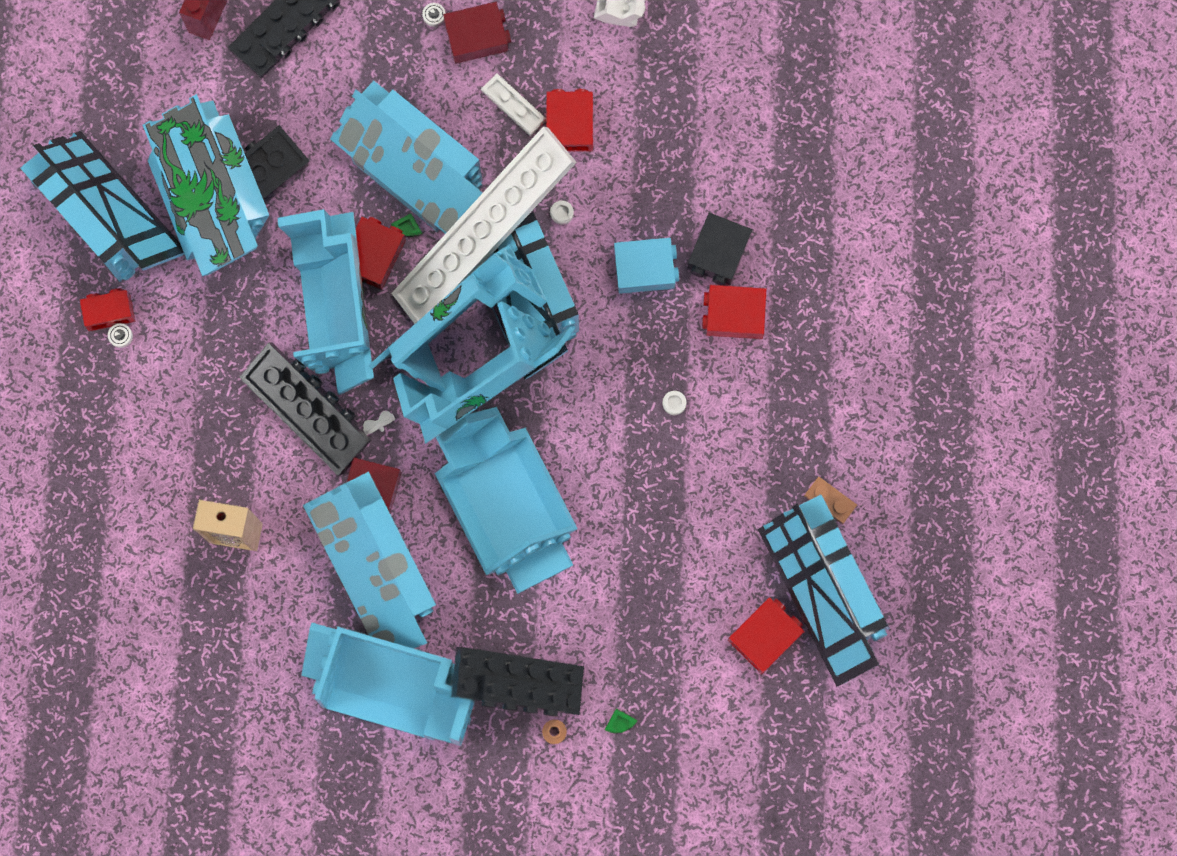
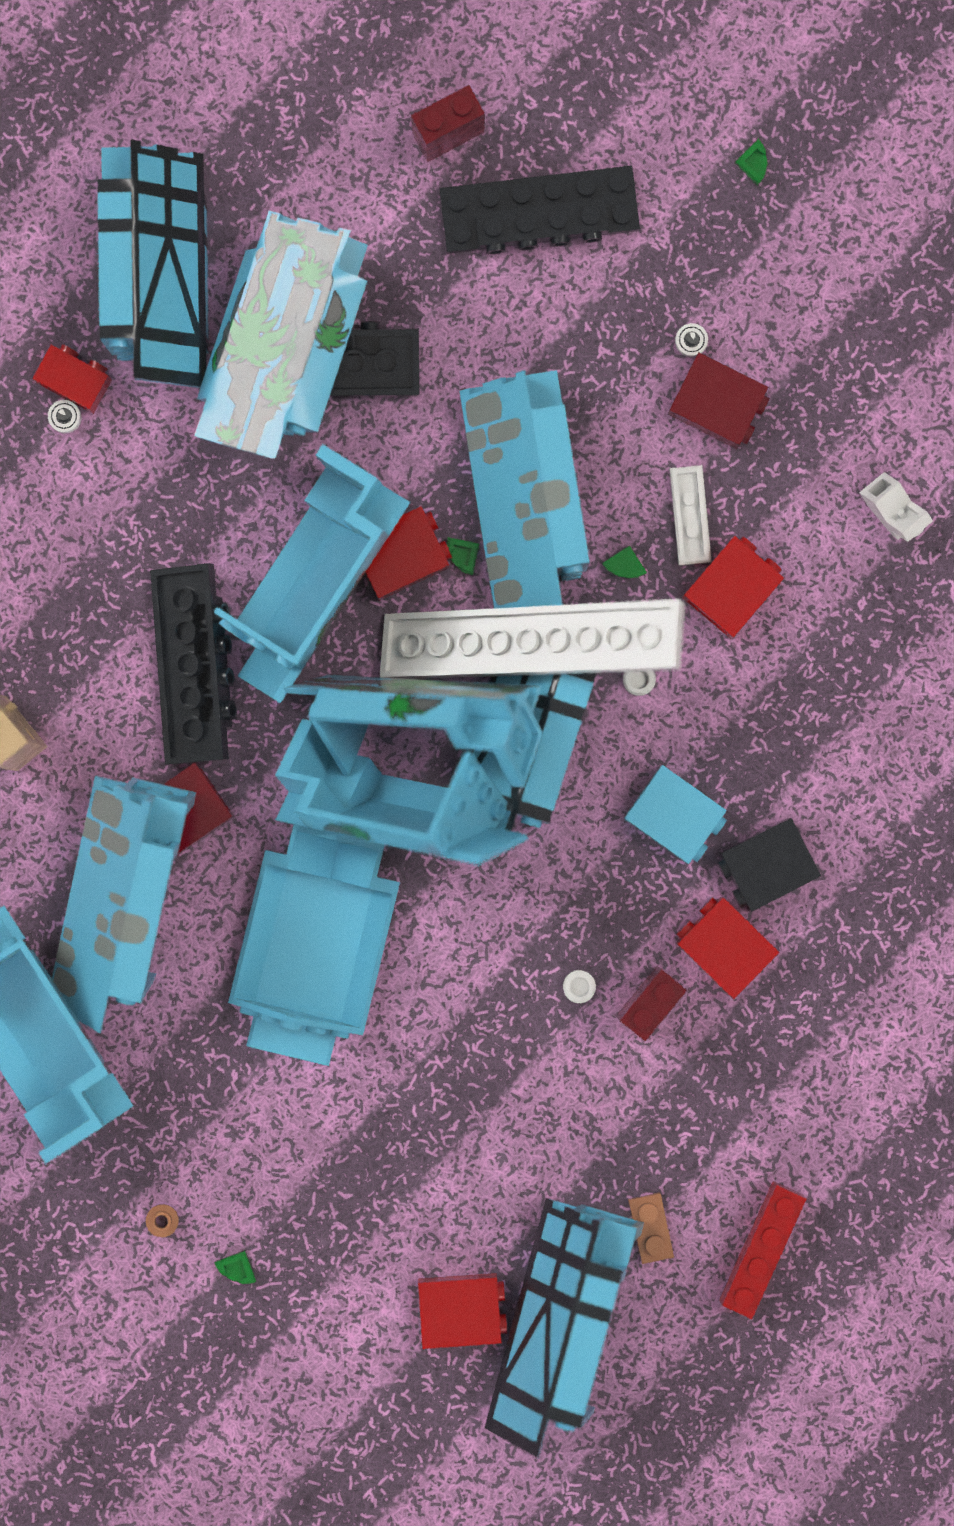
camera: 40 degrees right, 10 degrees up
(384, 419) = (265, 744): white piece -> none
(500, 158) = (625, 564): none -> green tile
(517, 682) = (159, 1149): black plate -> none
(721, 372) = (651, 1003): none -> dark red brick
(901, 457) = (762, 1250): none -> red brick

